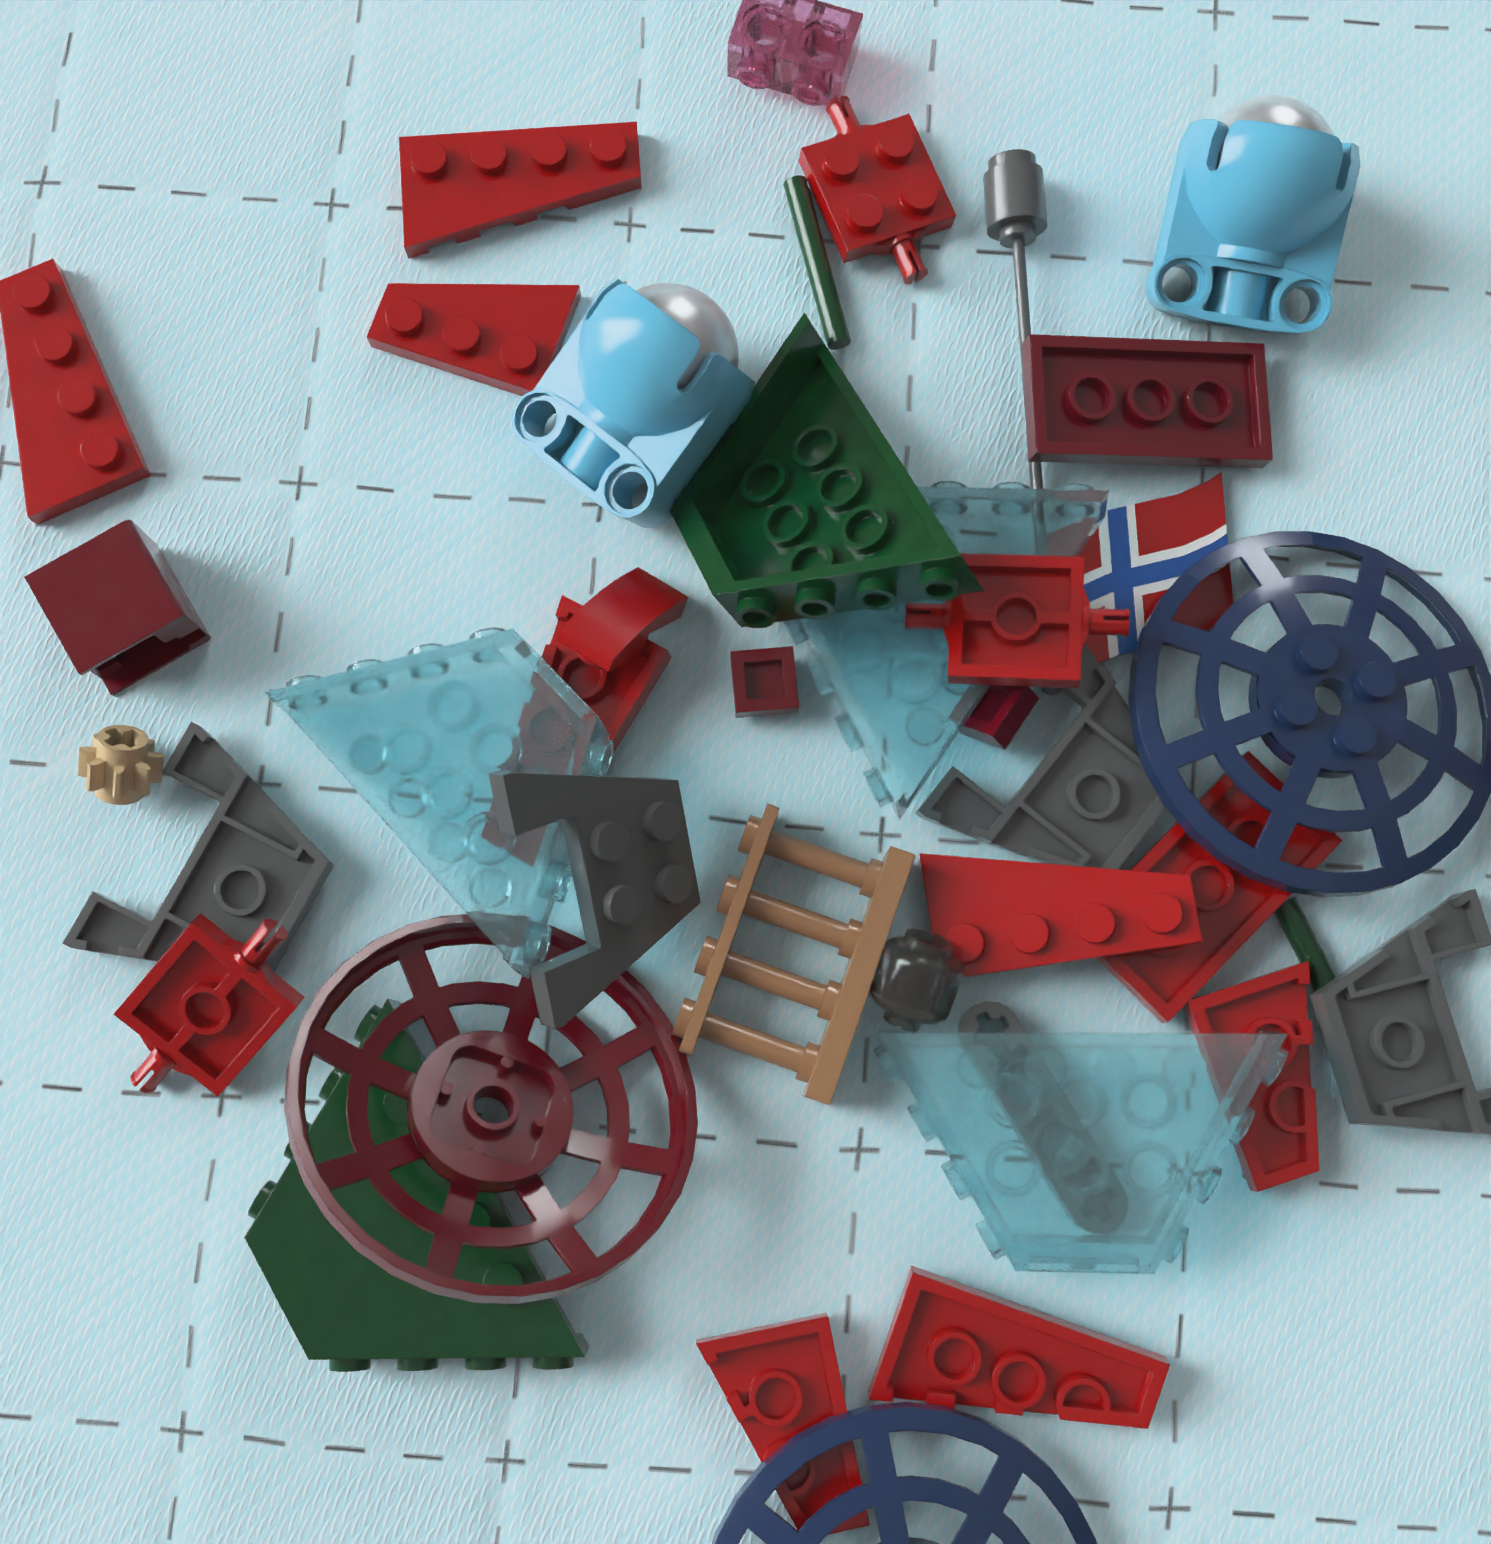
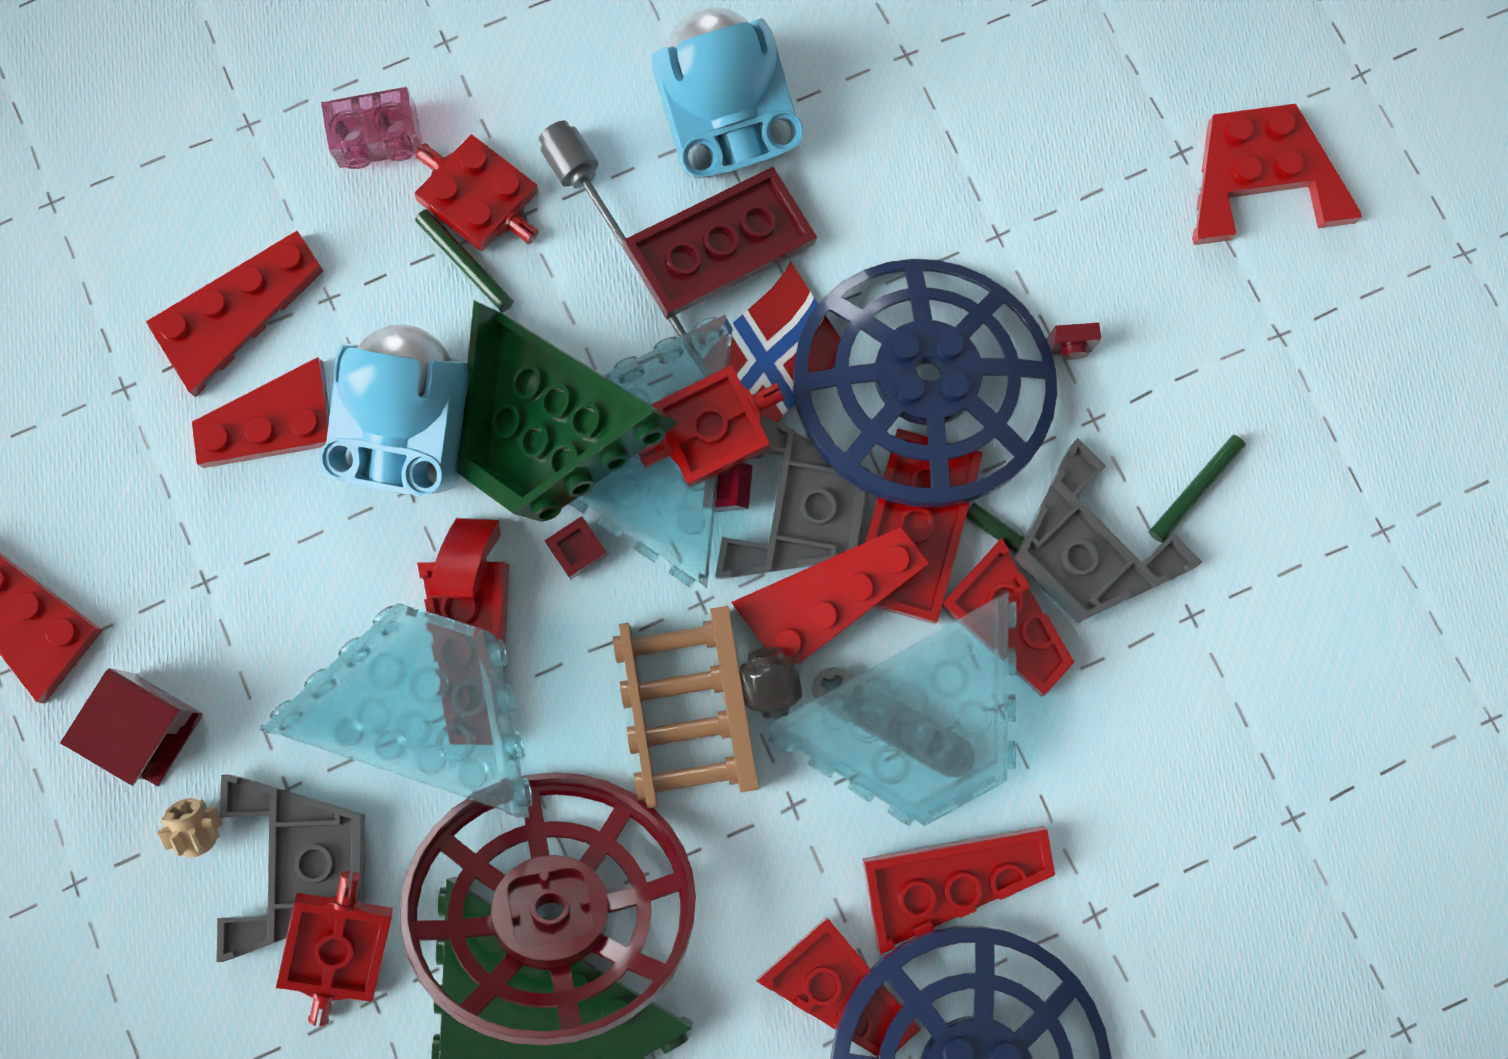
camera: 30 degrees left, 0 degrees up
(626, 866) = (552, 712): dark grey wing -> none

